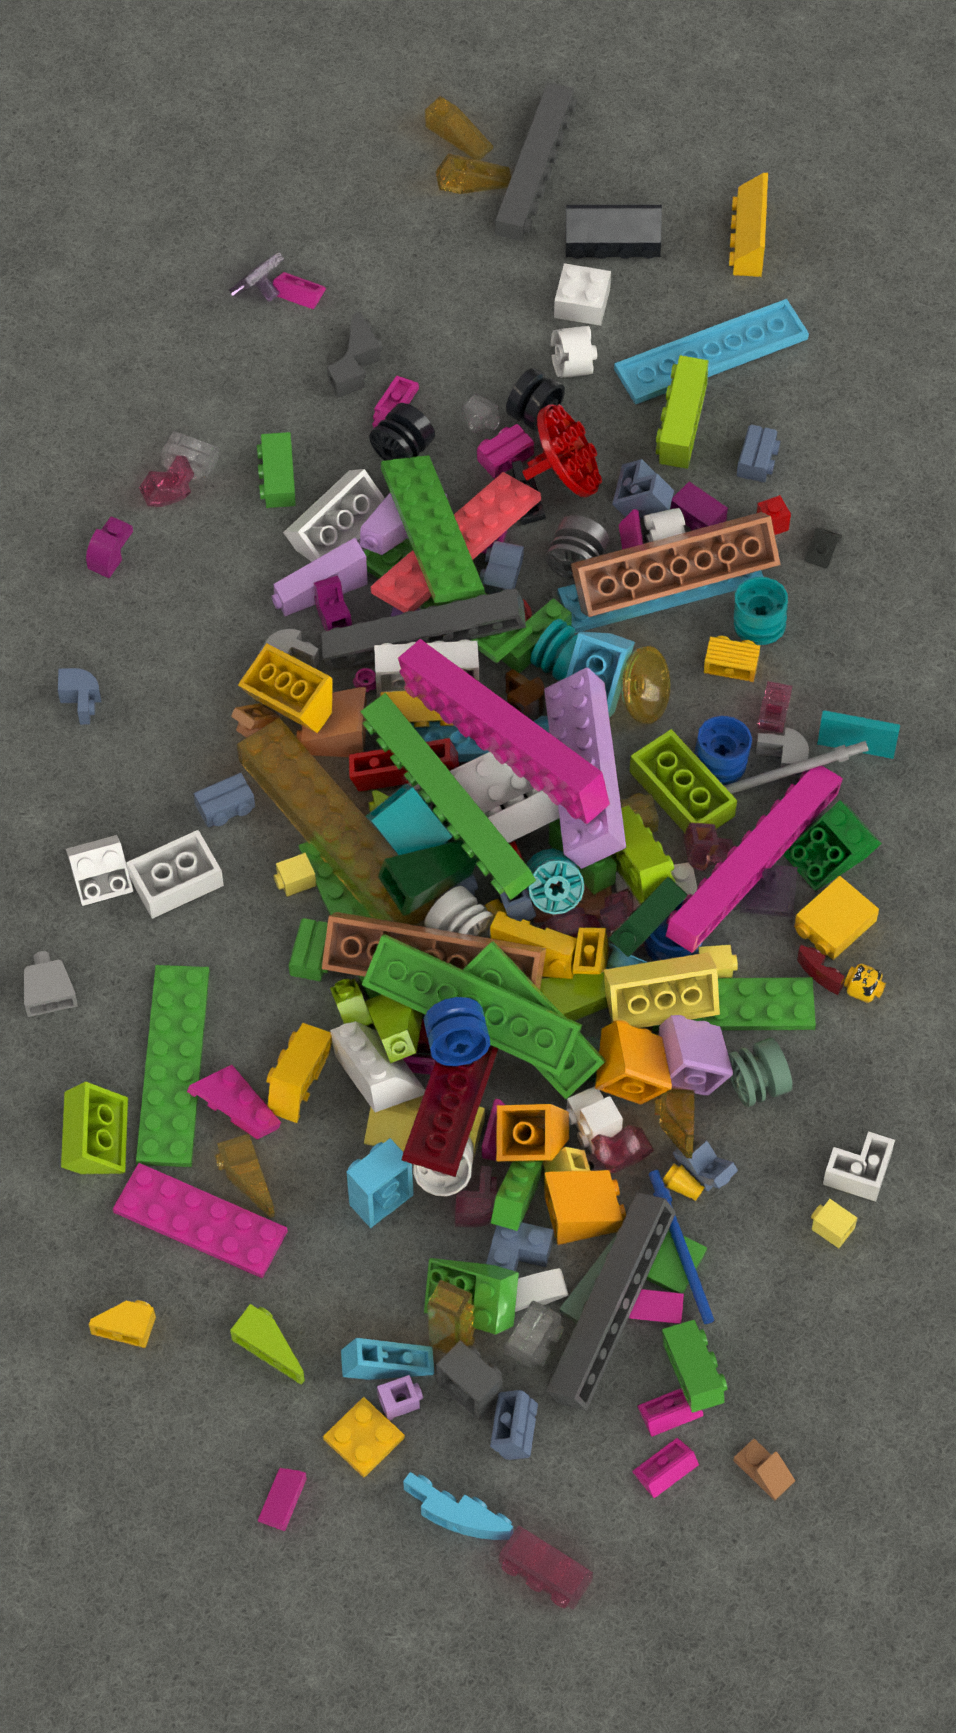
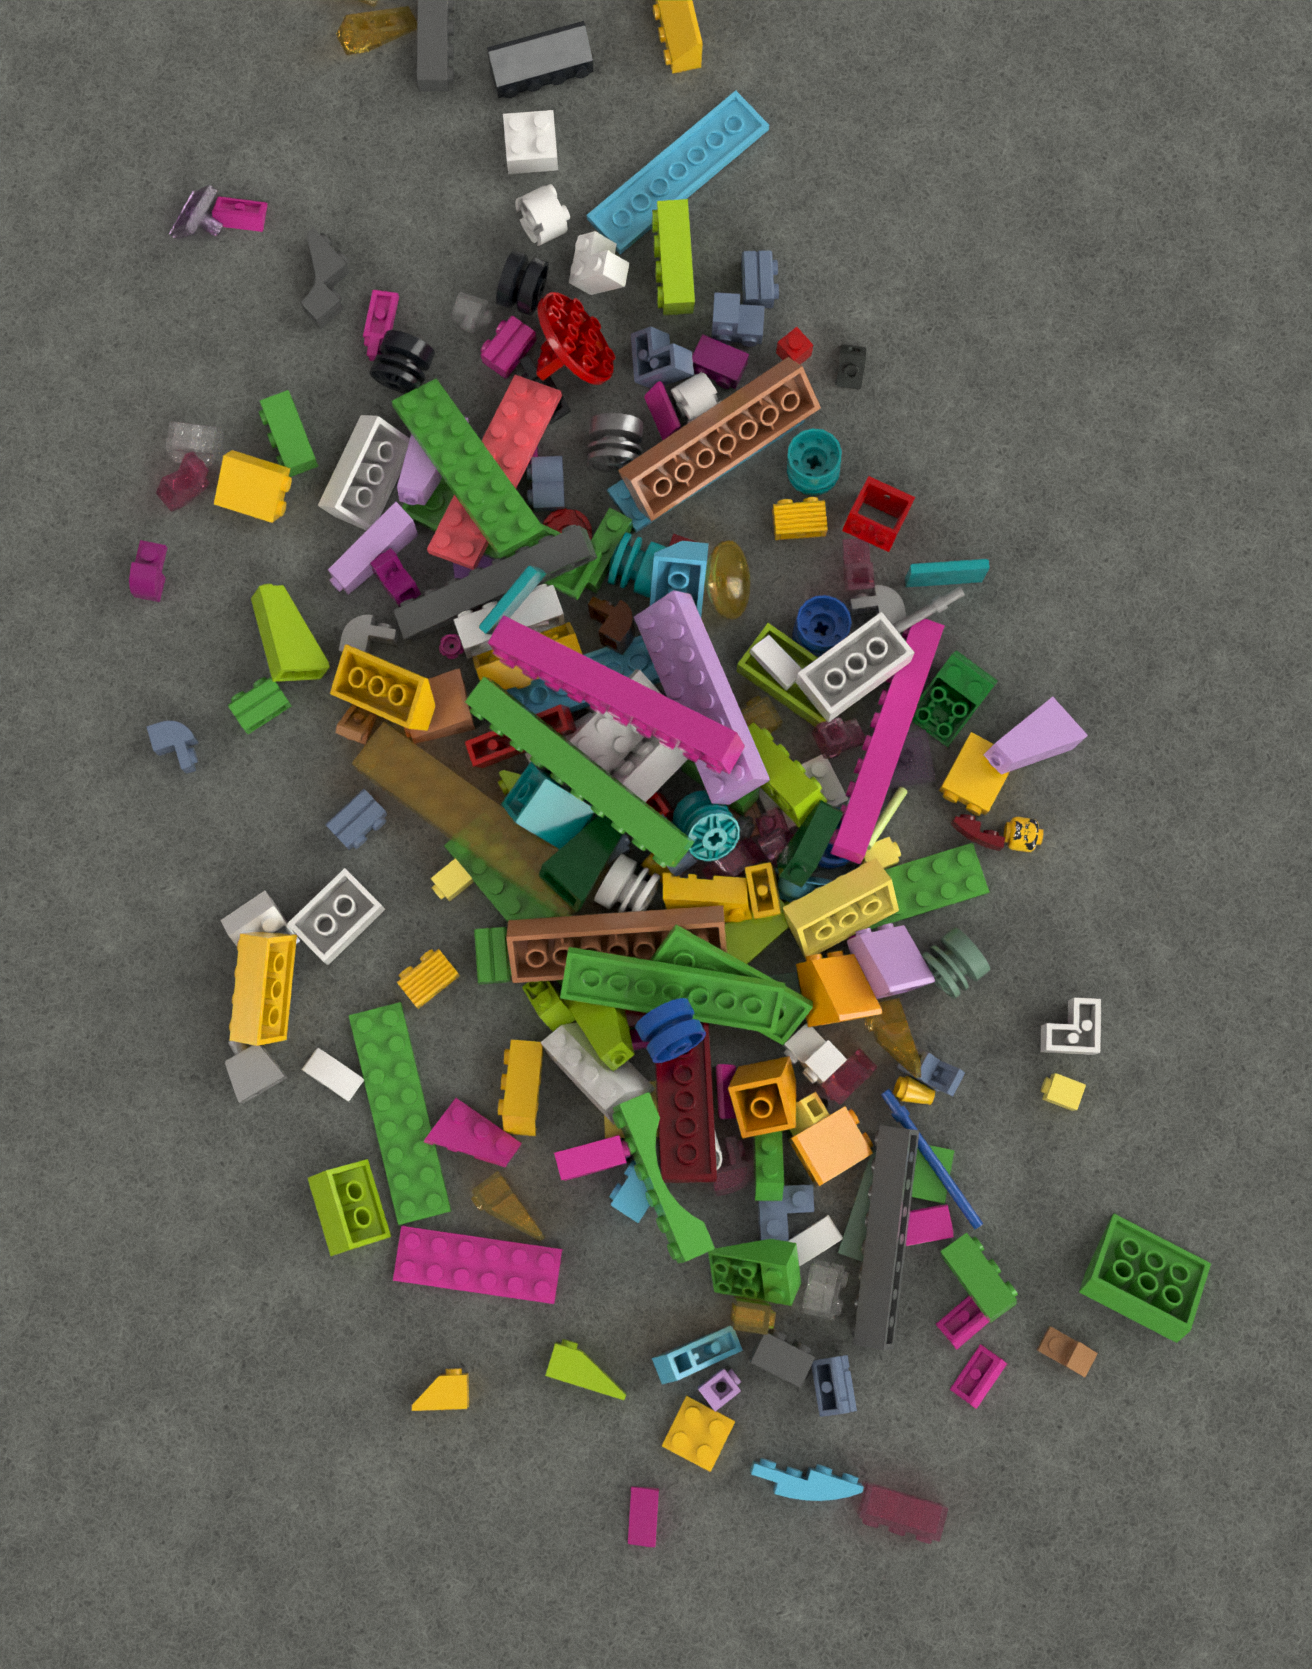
camera: 20 degrees left, 20 degrees up
(84, 910) = (262, 987): none -> yellow slope
(122, 1010) = (333, 1074): none -> white slope
(169, 681) = (258, 704): none -> bright green brick
(214, 631) = (286, 637): none -> lime slope
(229, 500) = (252, 486): none -> yellow brick
(242, 952) = (427, 978): none -> yellow brick
(341, 1132) = (592, 1158): none -> dark pink arch
(410, 1210) = (684, 1232): none -> bright green arch
(437, 628) = (513, 598): none -> teal tile
(591, 900) = (746, 827): none -> dark grey plate
(609, 403) = (596, 265): none -> white brick
(668, 762) = (776, 661): none -> white slope
(723, 480) = (736, 321): none -> sand blue brick
(731, 930) = (886, 815): none -> yellowish green bar
(740, 780) = (854, 667): none -> white brick
(808, 653) = (896, 505): none -> red window
(864, 1420) = (1146, 1278): none -> bright green slope
(901, 896) = (1036, 738): none -> lavender slope

